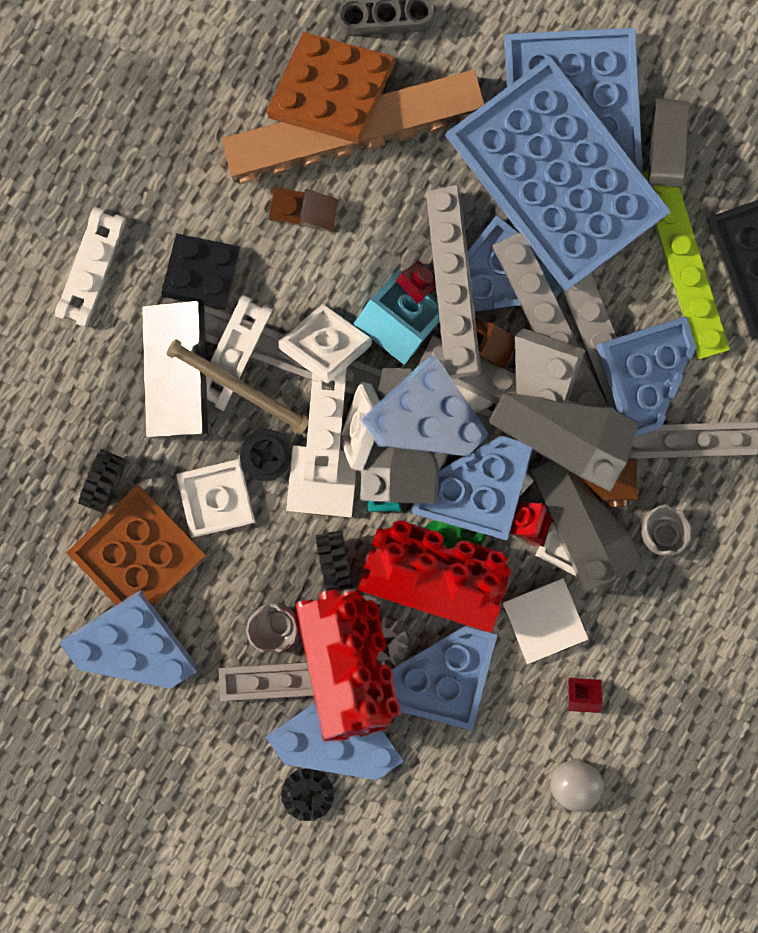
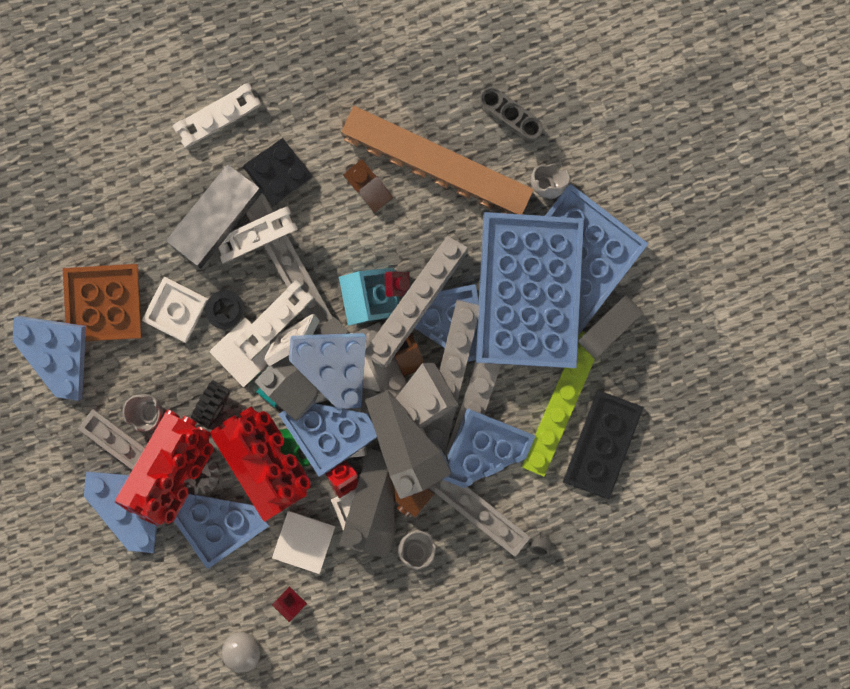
camera: 35 degrees right, 0 degrees up
(102, 481) = (117, 244): black tyre -> none
(237, 386) = (241, 257): dark tan bar -> none
(315, 781) = (93, 522): black gear -> none
(325, 343) = (312, 274): white tile -> none
(331, 87) = (442, 129): dark orange plate -> none
(482, 49) = (549, 181): none -> light grey hair

